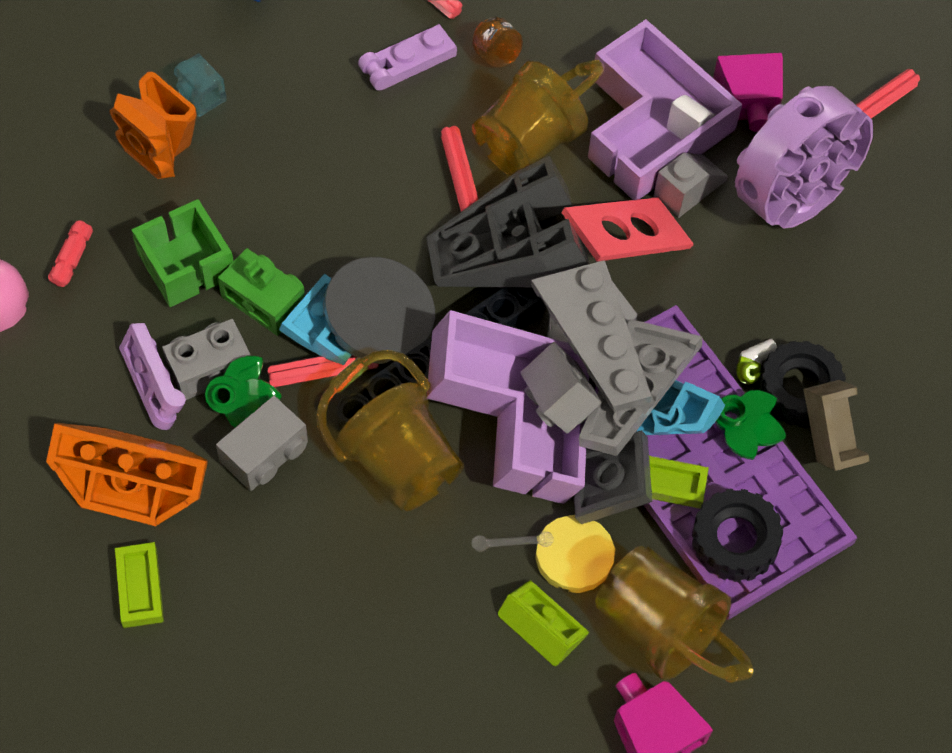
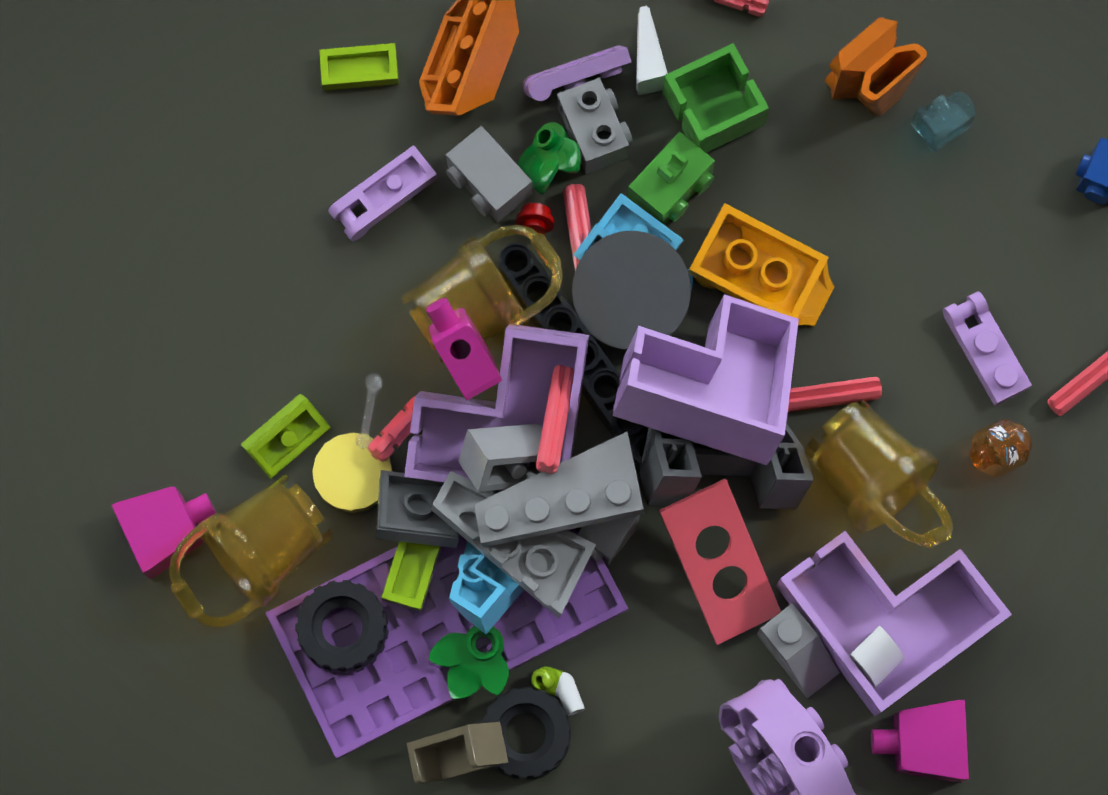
camera: 100 degrees right, 15 degrees up
(119, 315) = (650, 60): none -> white slope
(281, 546) = (383, 192): none -> lavender plate
(305, 404) = (536, 217): none -> red plate
(344, 217) = (763, 267): none -> light orange slope
(455, 429) = (462, 349): none -> dark pink torso
(473, 217) = (718, 394): none -> lavender piece
(522, 343) = (555, 419): none -> coral axle
(530, 509) = (392, 434): none -> coral axle

